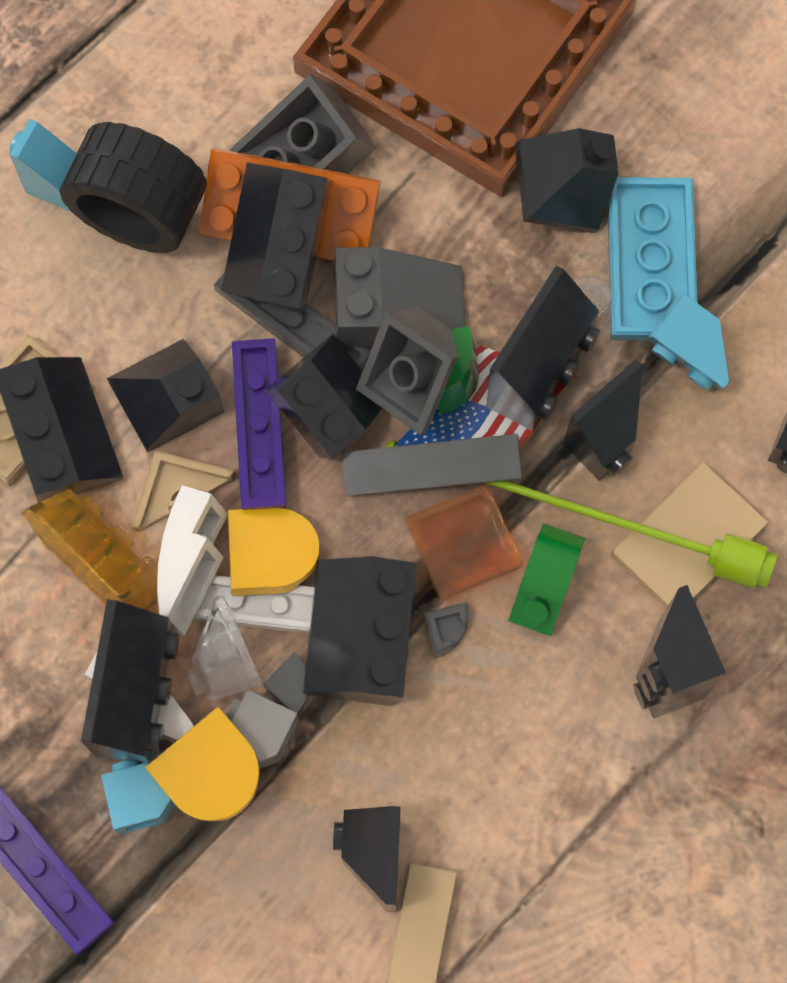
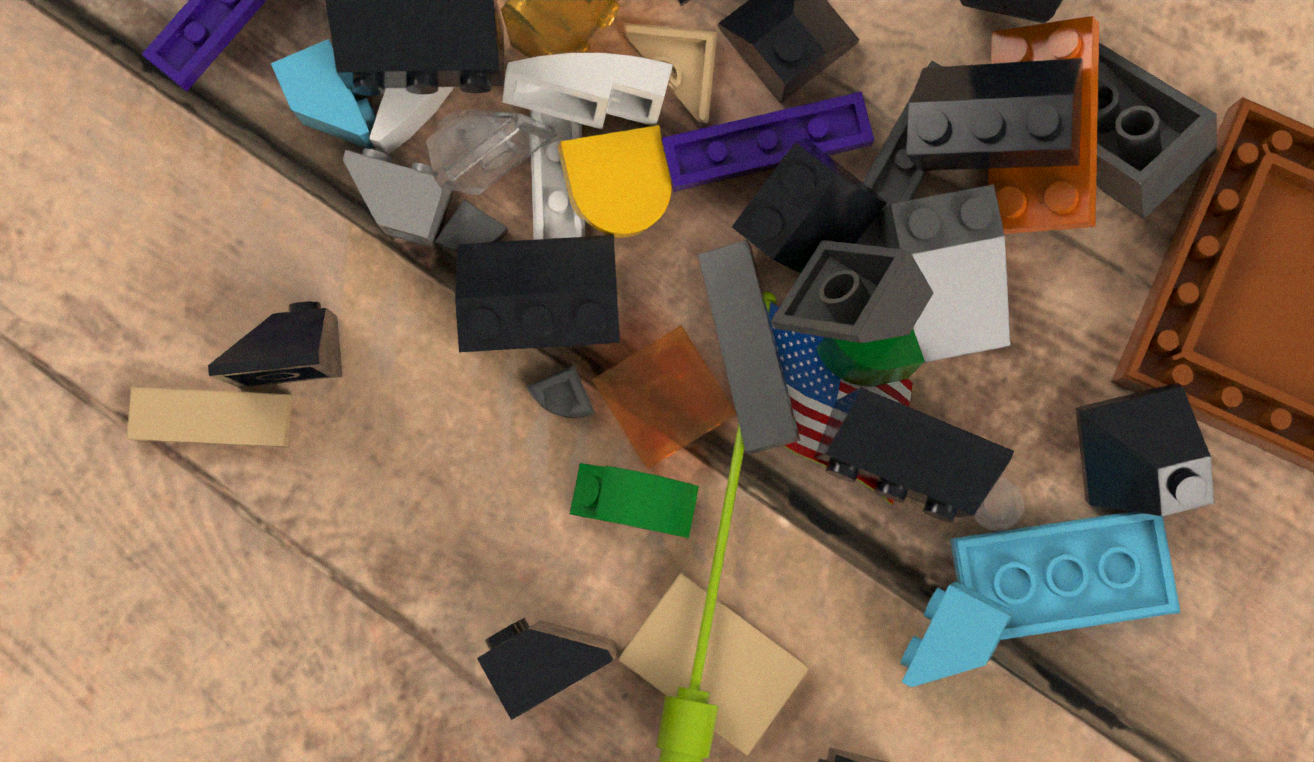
camera: 80 degrees right, 10 degrees up
(209, 770) = (345, 151): yellow tile -> none
(606, 425) = (831, 547): black slope -> none

